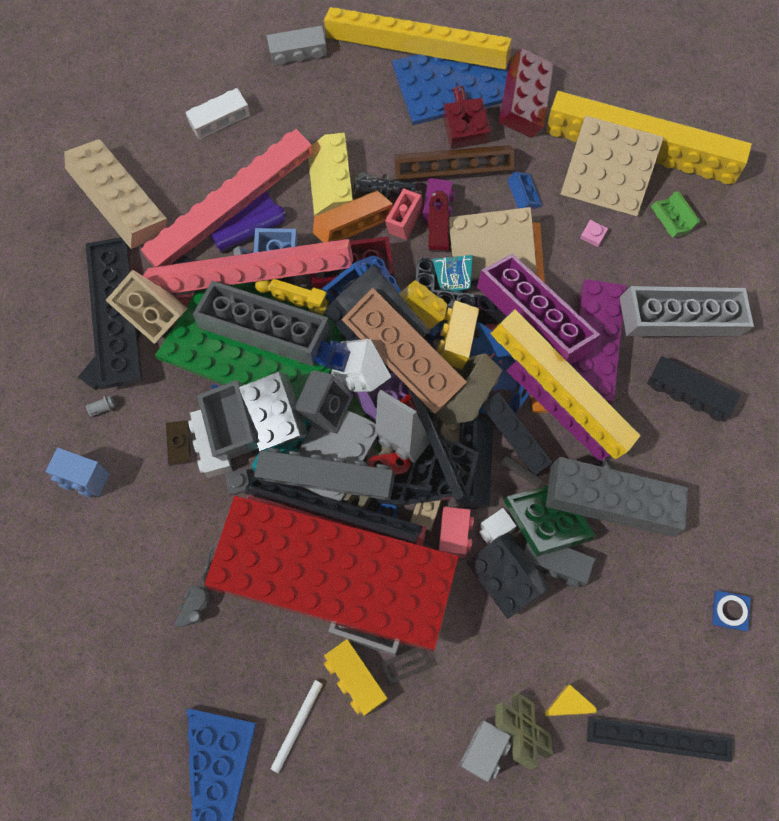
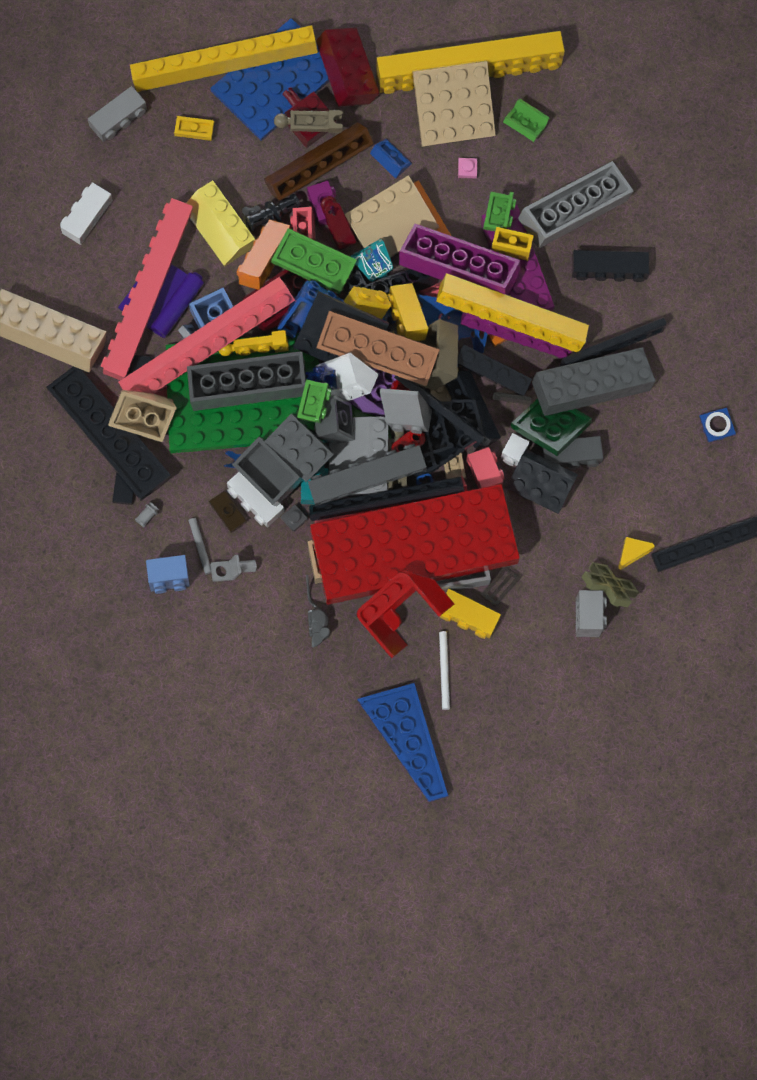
camera: 35 degrees left, 5 degrees up
(134, 455) = (200, 545): none -> light grey bar
(148, 501) = (233, 568): none -> light grey bracket
(258, 636) = (379, 611): none -> red windscreen
(309, 371) = (314, 401): none -> bright green bracket
(357, 86) = (194, 128): none -> yellow plate
(394, 243) = (314, 261): none -> bright green plate
(464, 119) = (311, 121): none -> dark tan plate
(601, 315) = (512, 243): none -> yellow brick
(602, 281) = (499, 210): none -> bright green bracket
(662, 469) = (616, 343): none -> black tile

